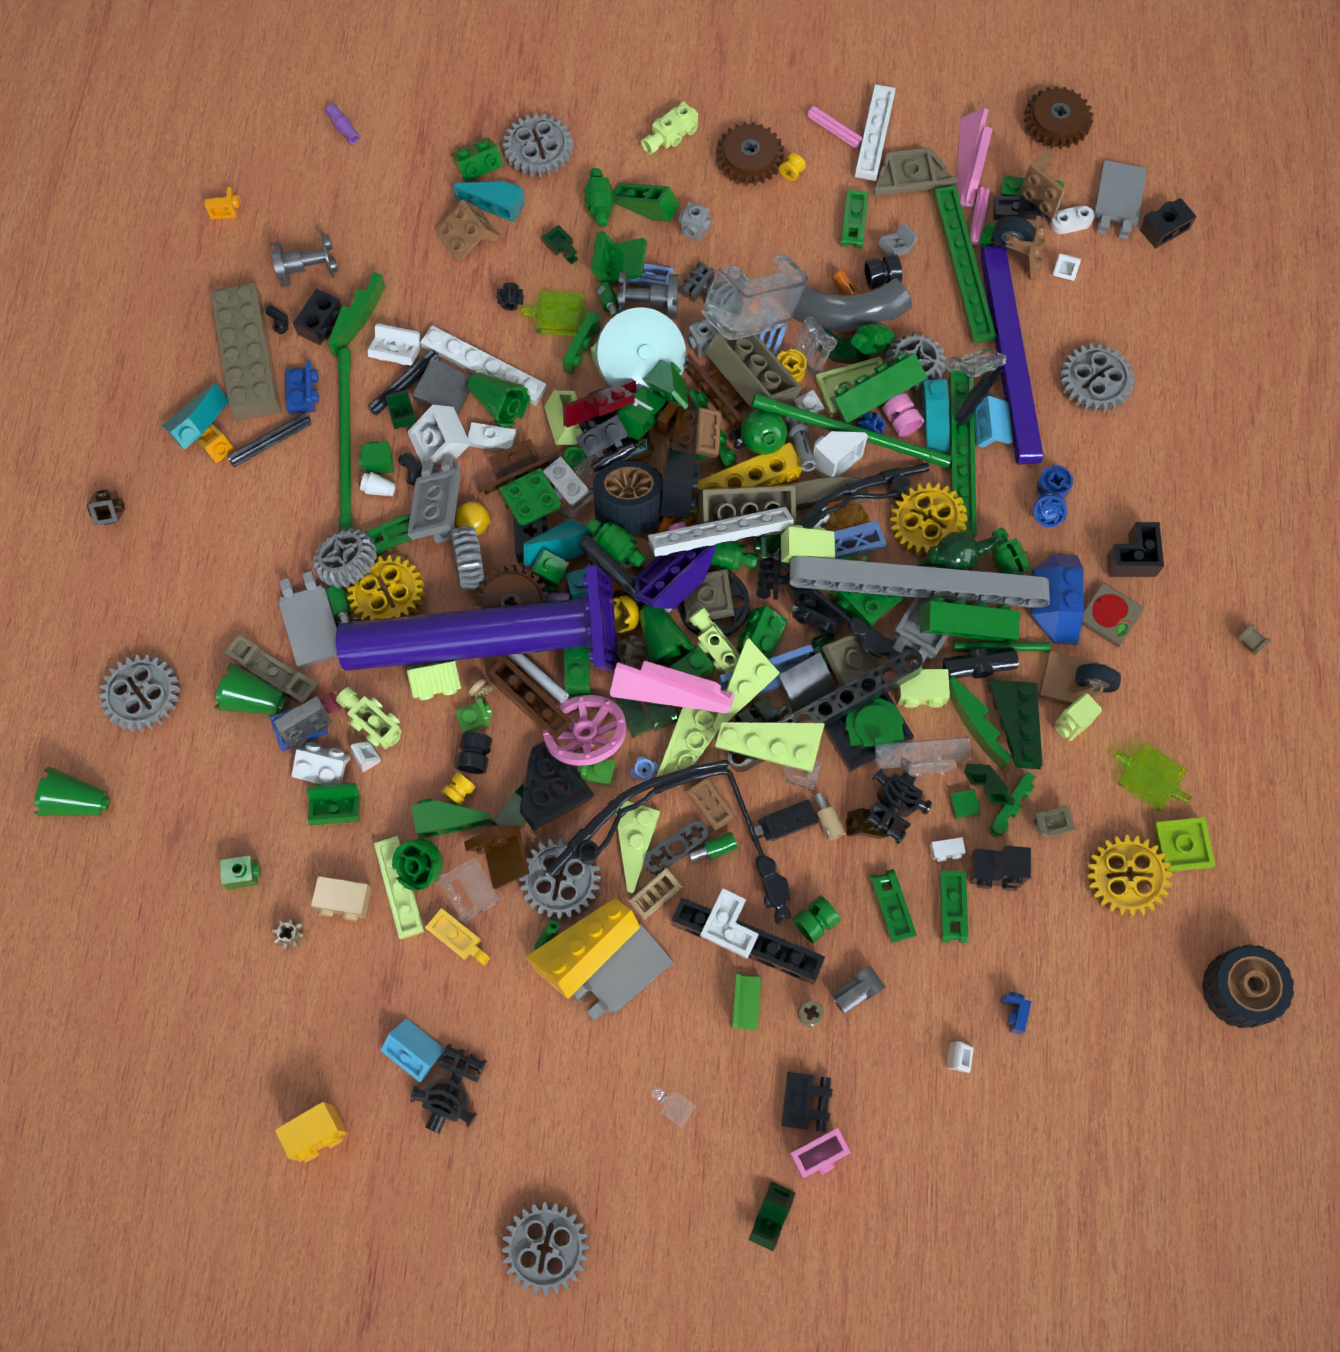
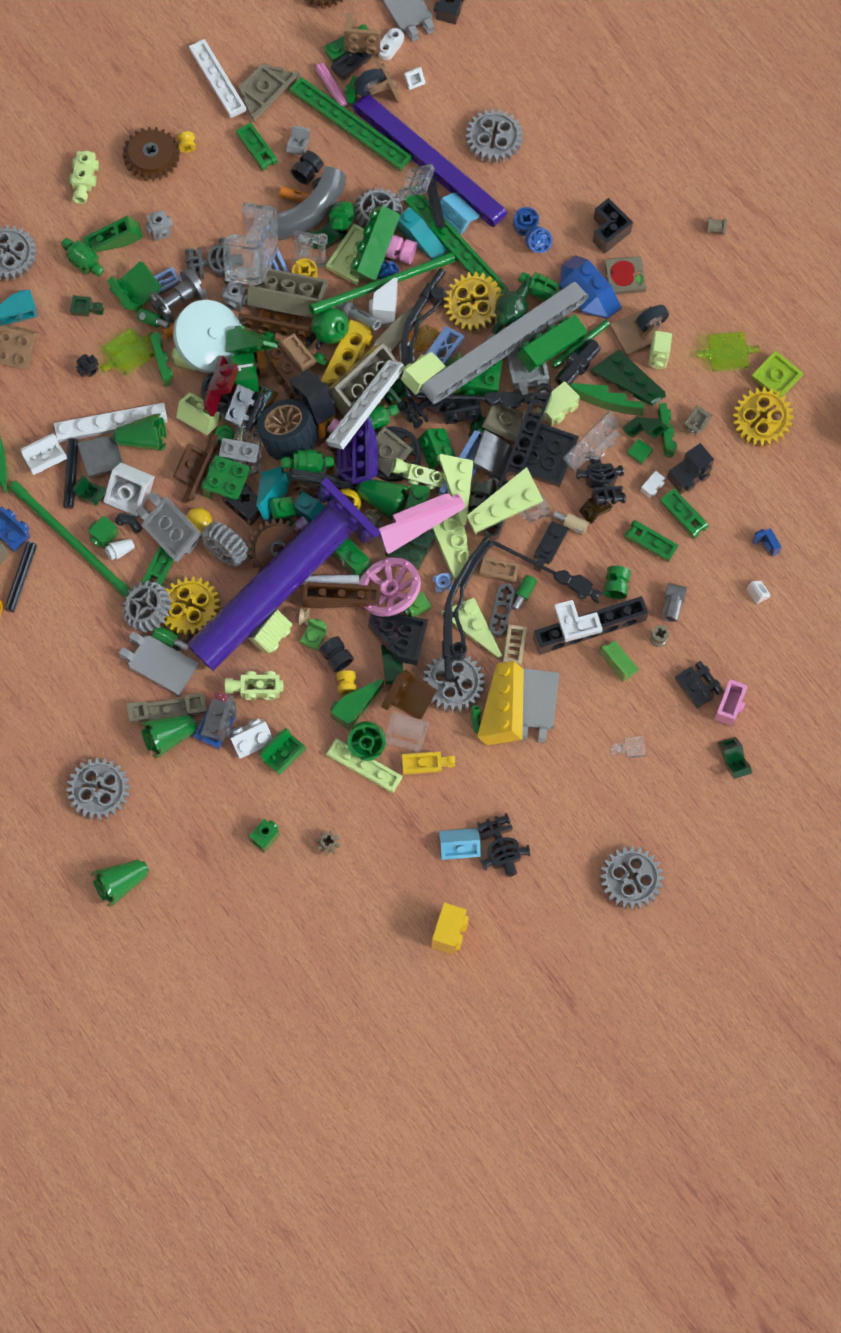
camera: 45 degrees left, 0 degrees up
(341, 898) = (340, 797): tan brick -> none
(364, 755) = (270, 711): white slope -> none
(491, 437) = (161, 462): white plate -> none
(809, 402) = (336, 287): white plate -> none
(835, 127) = (187, 94): bright pink axle -> none
(875, 724) = (551, 447): green piece -> none
(972, 151) = (291, 46): bright pink wedge -> none

